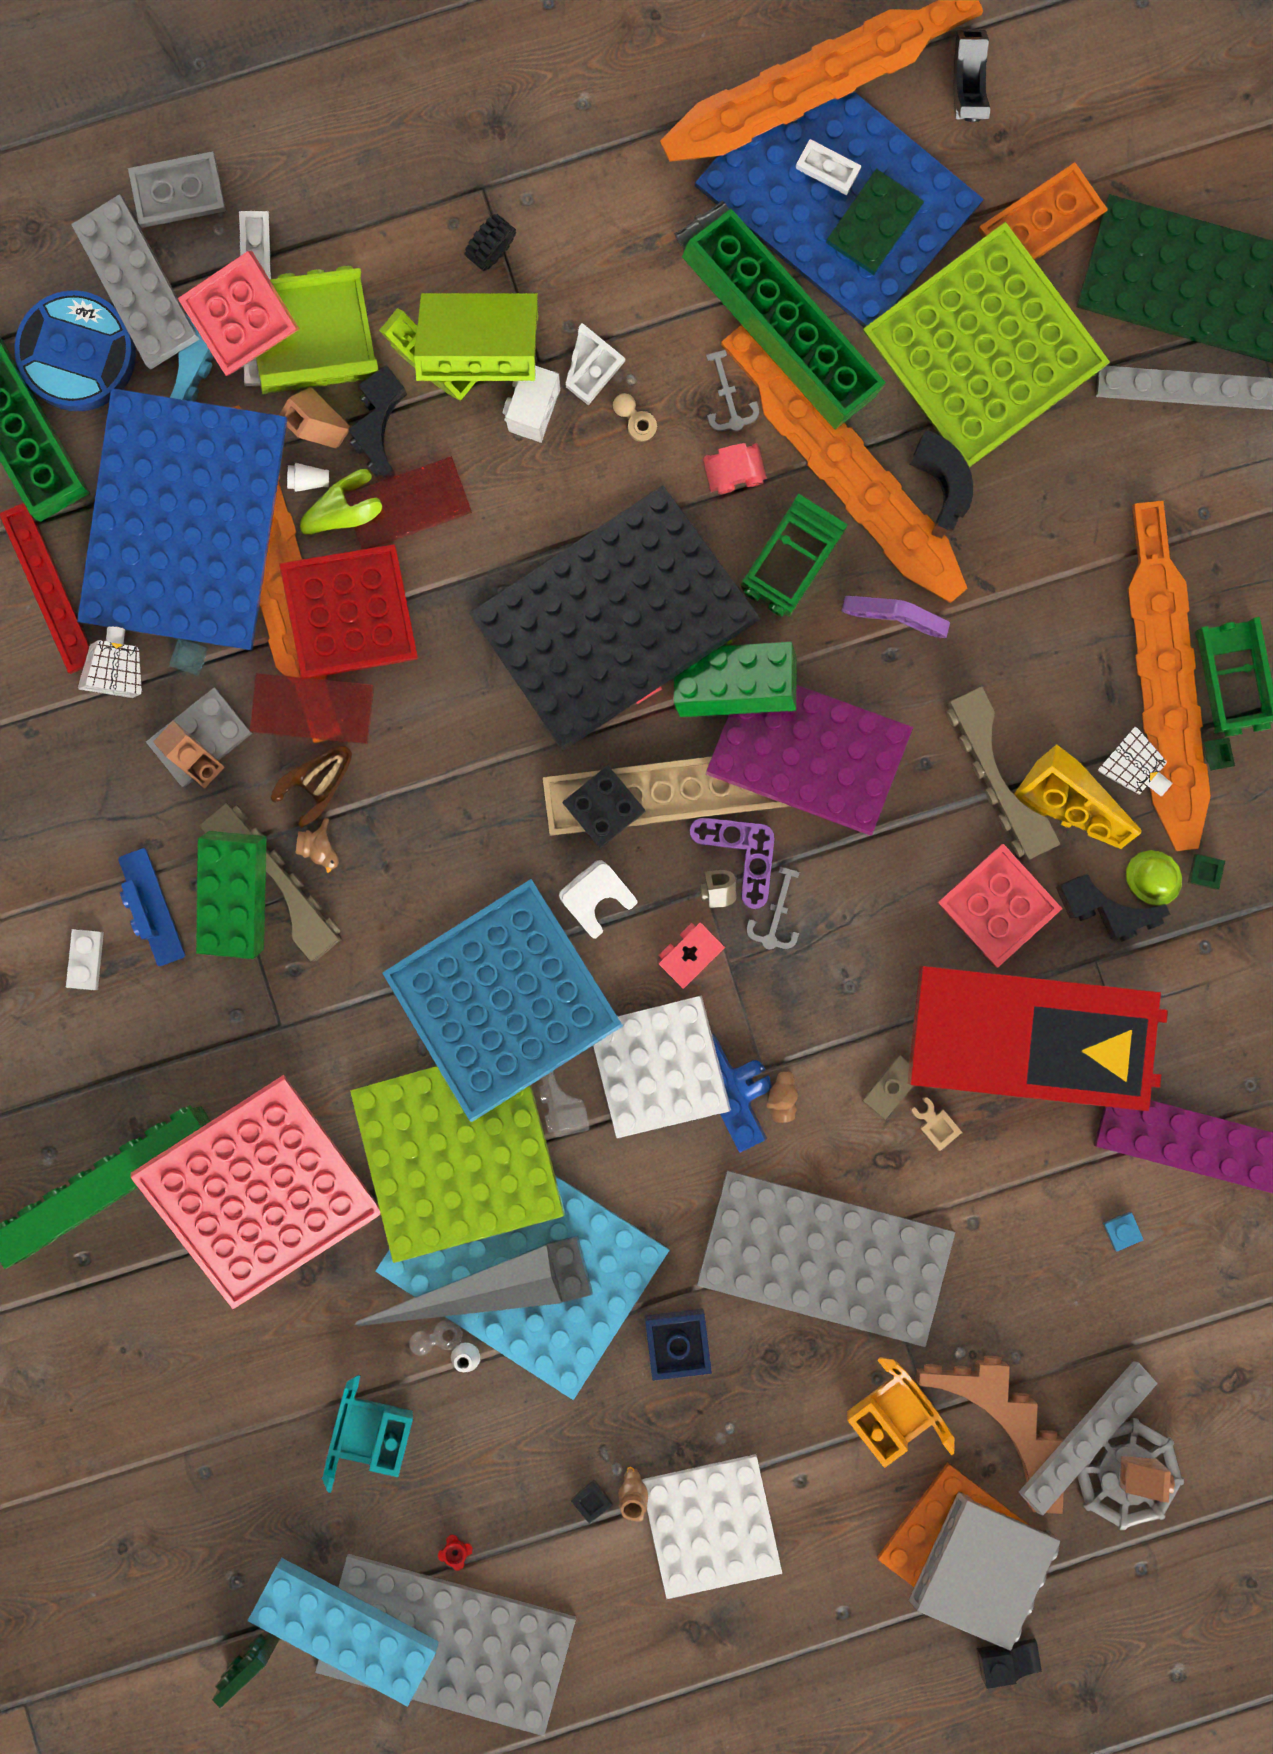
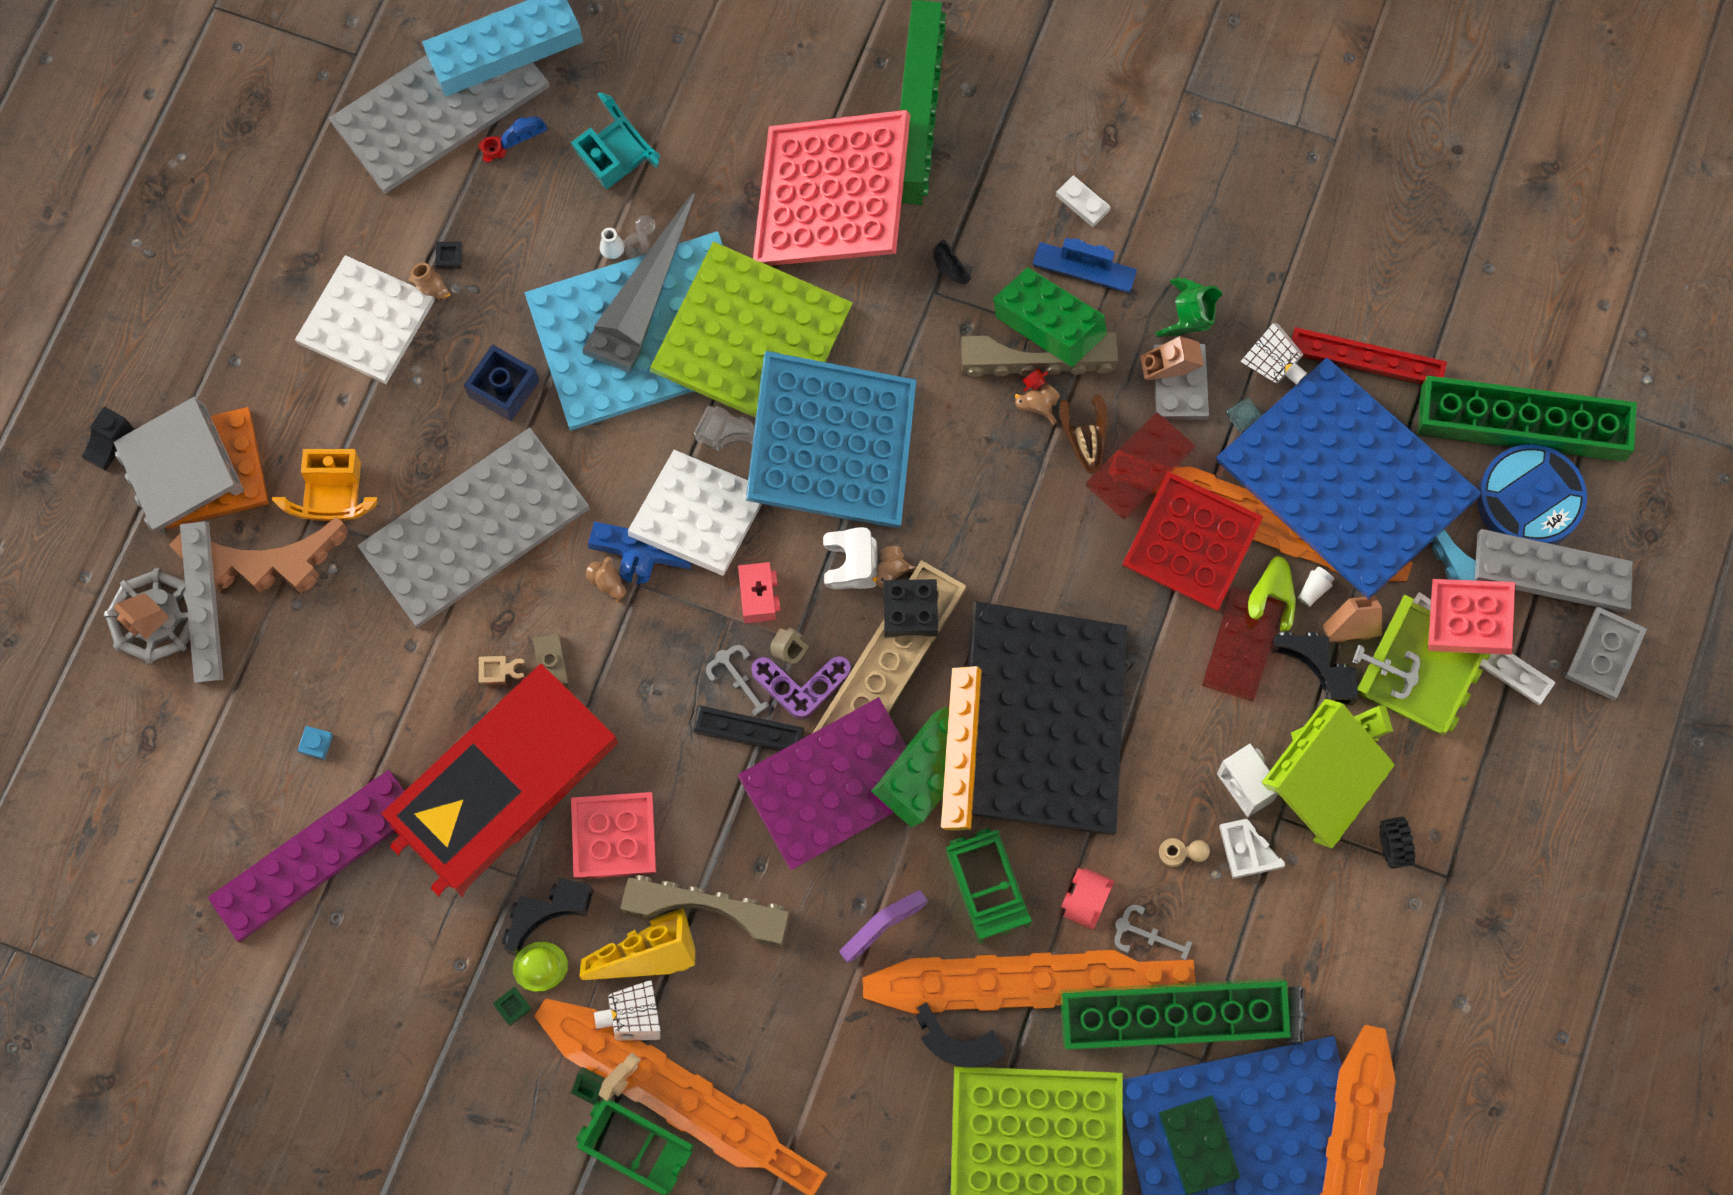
camera: 130 degrees right, 15 degrees down
(118, 775) = (1194, 307): none -> green helmet
(243, 1033) = (949, 263): none -> black plate
(301, 864) = (1034, 380): none -> red plate
(331, 335) = (1410, 678): none -> light grey piece
(416, 1538) = (523, 130): none -> blue plate
(575, 857) = (891, 565): none -> medium nougat animal
(703, 656) = (961, 748): none -> plate
(816, 866) = (746, 729): none -> black tile
(828, 167) = (1269, 1141): white plate -> none
(1203, 728) = (616, 1081): none -> tan plate

